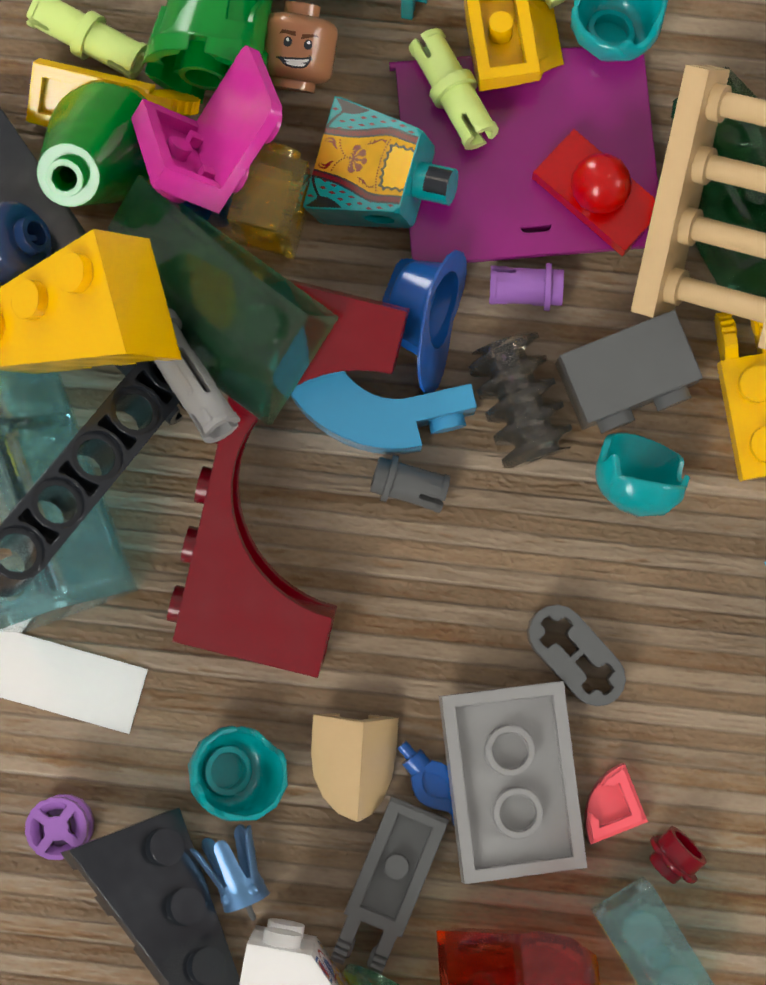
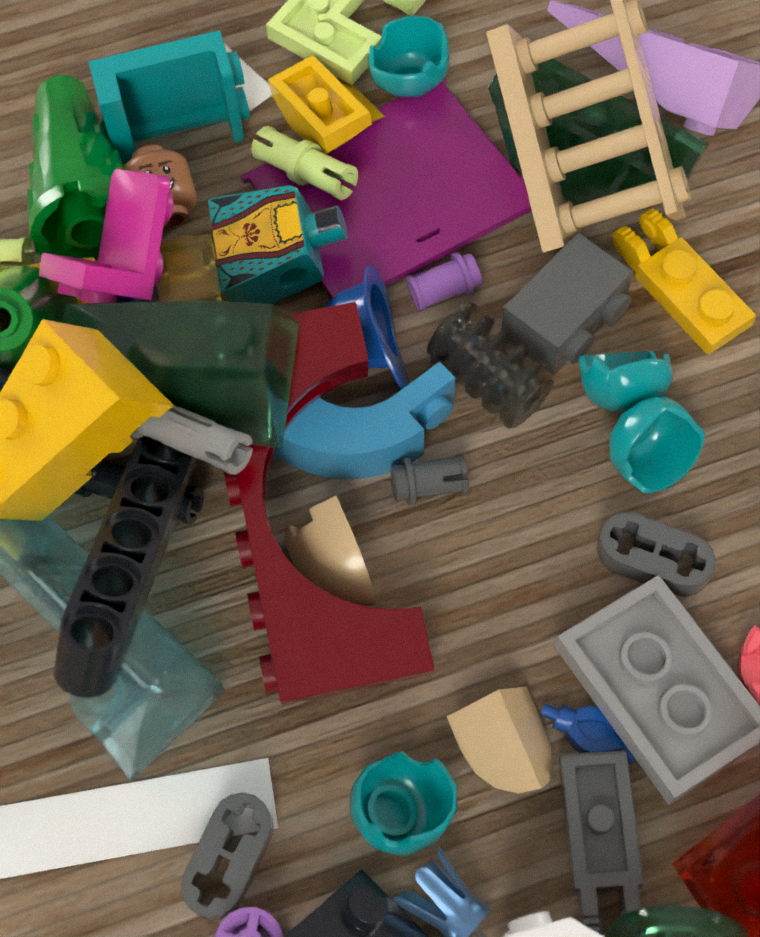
camera: 25 degrees left, 20 degrees down
(65, 730) = (213, 848): none -> dark grey beam
(283, 517) = (330, 555): none -> tan brick
(597, 191) = (464, 182): red tile -> none
(629, 556) = (655, 444): none -> teal hair

